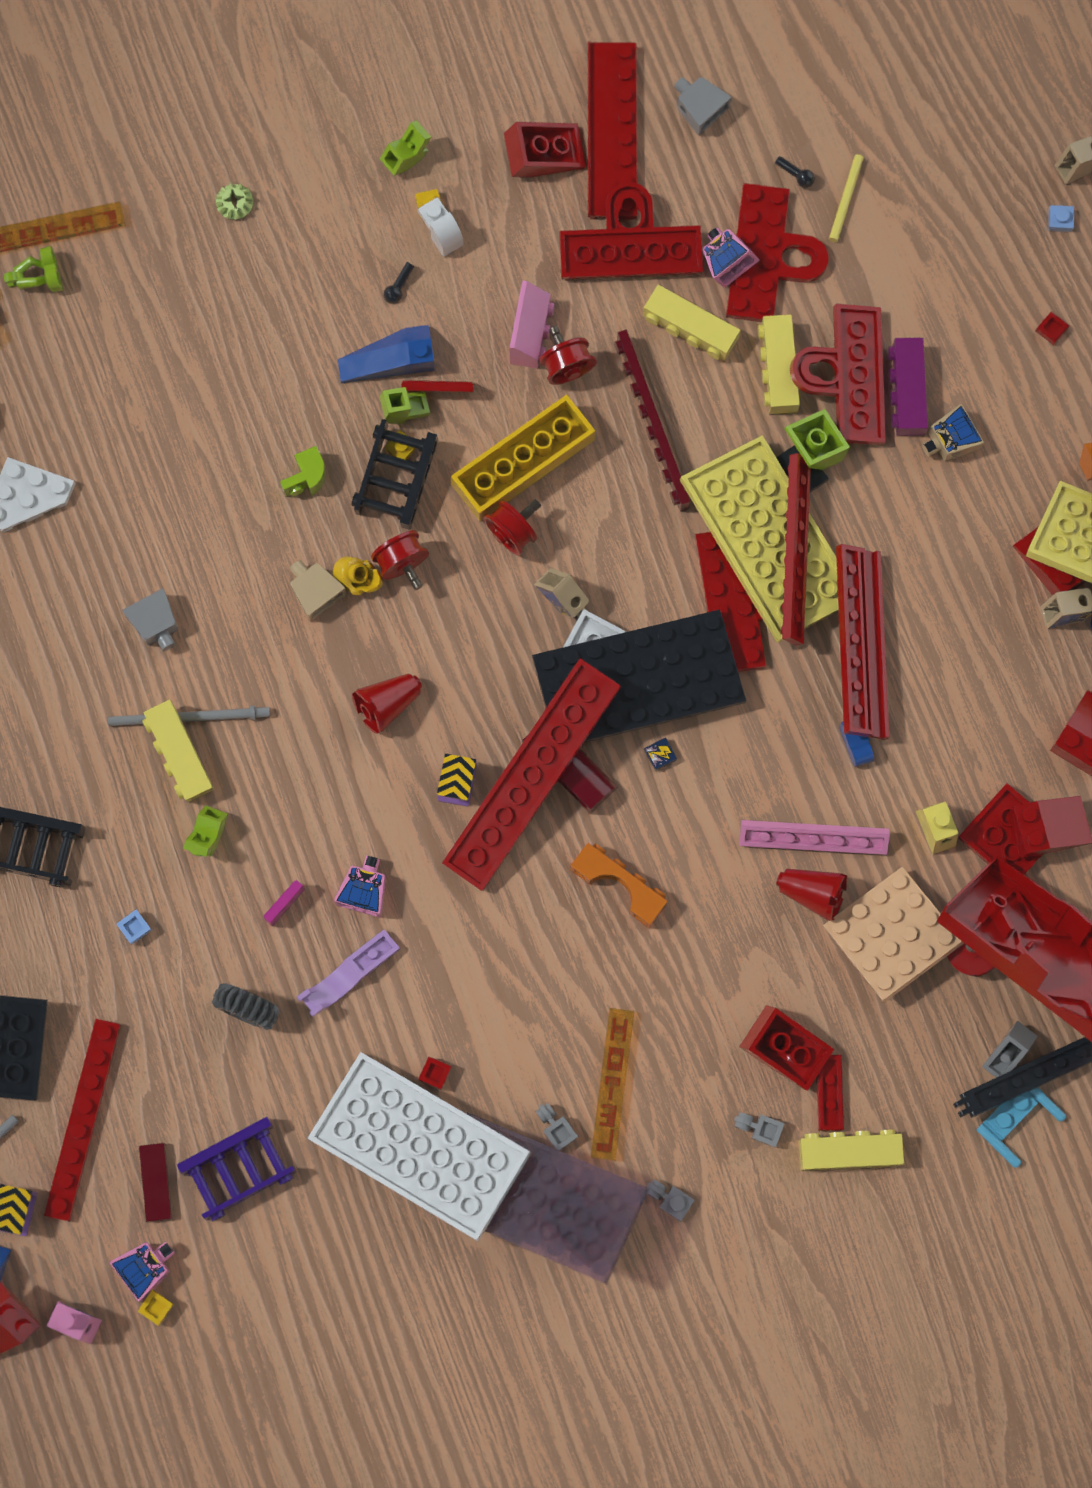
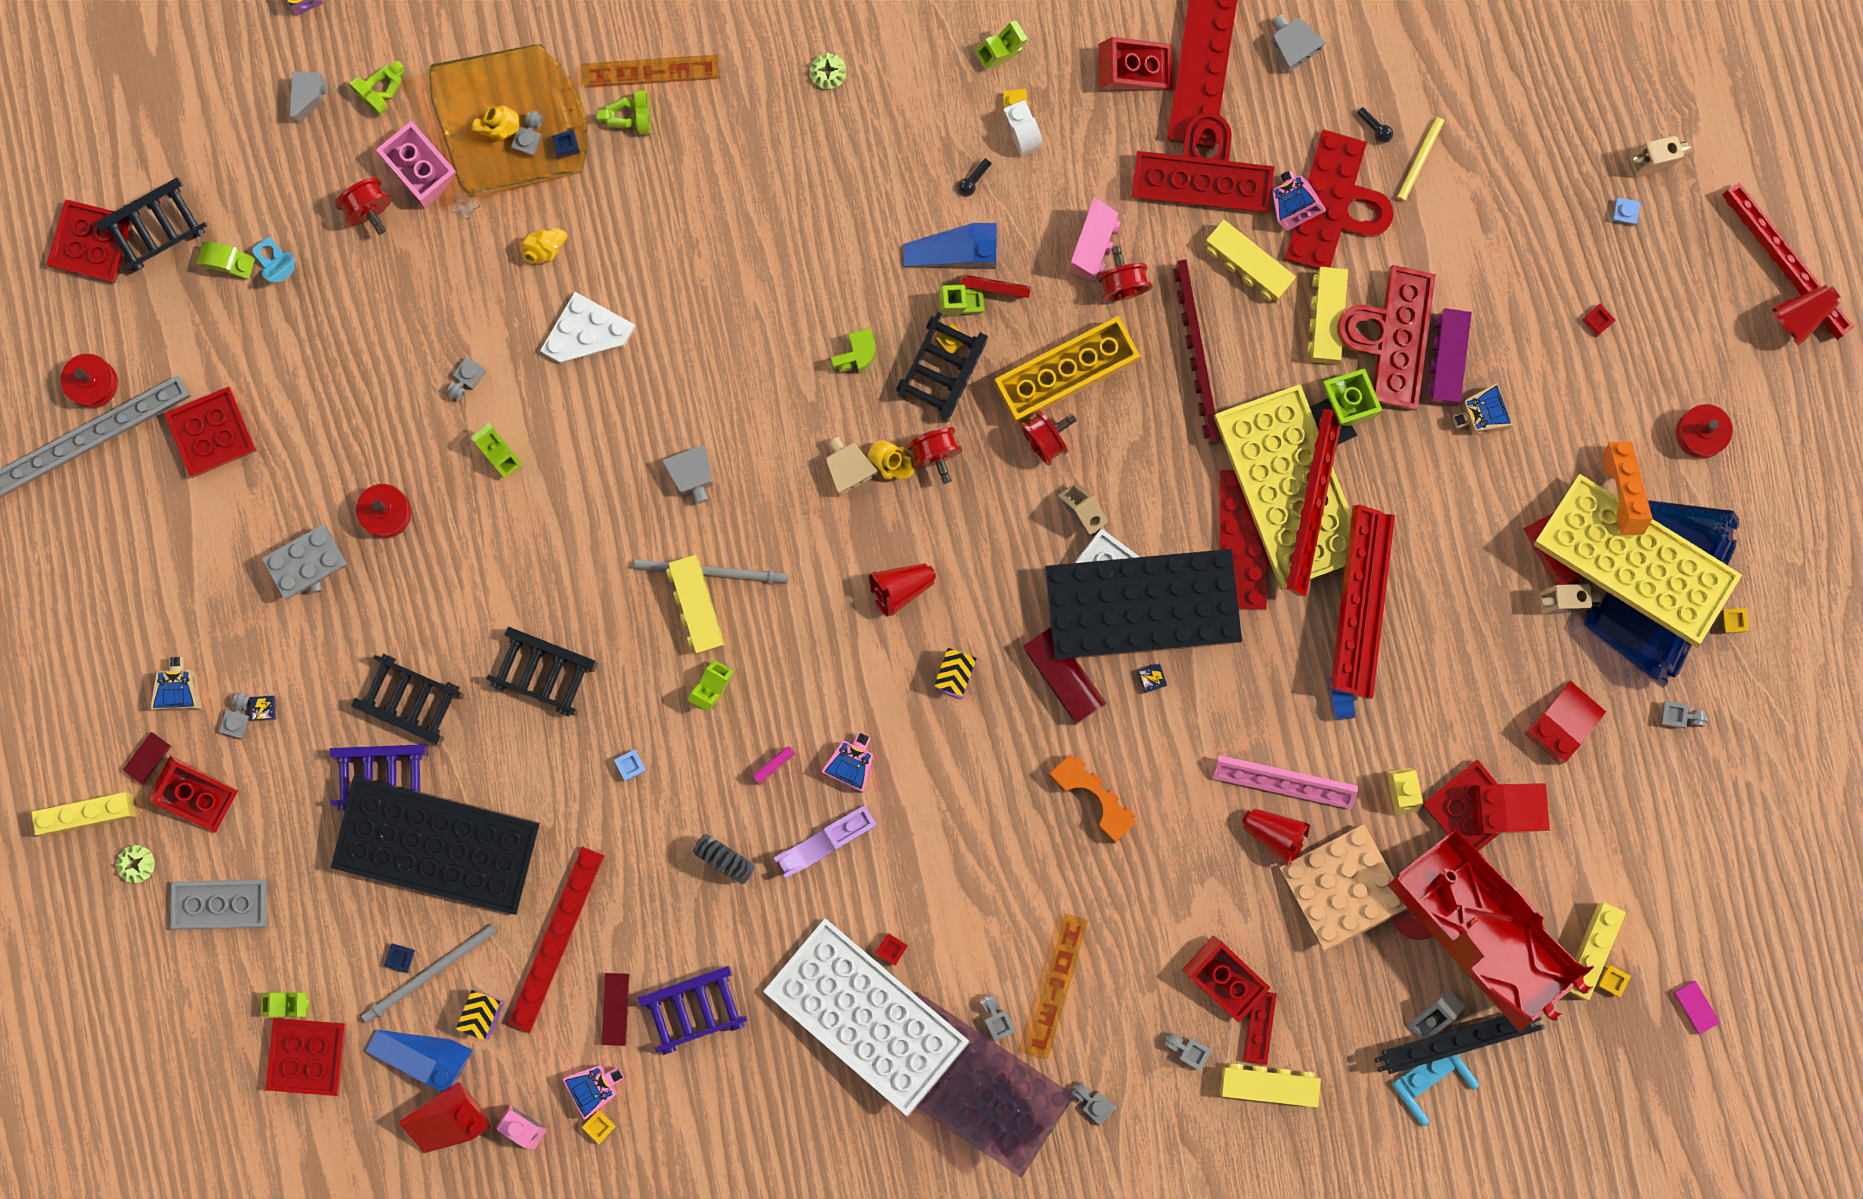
camera: 10 degrees right, 5 degrees up
(531, 774) = (1027, 681): red plate -> none

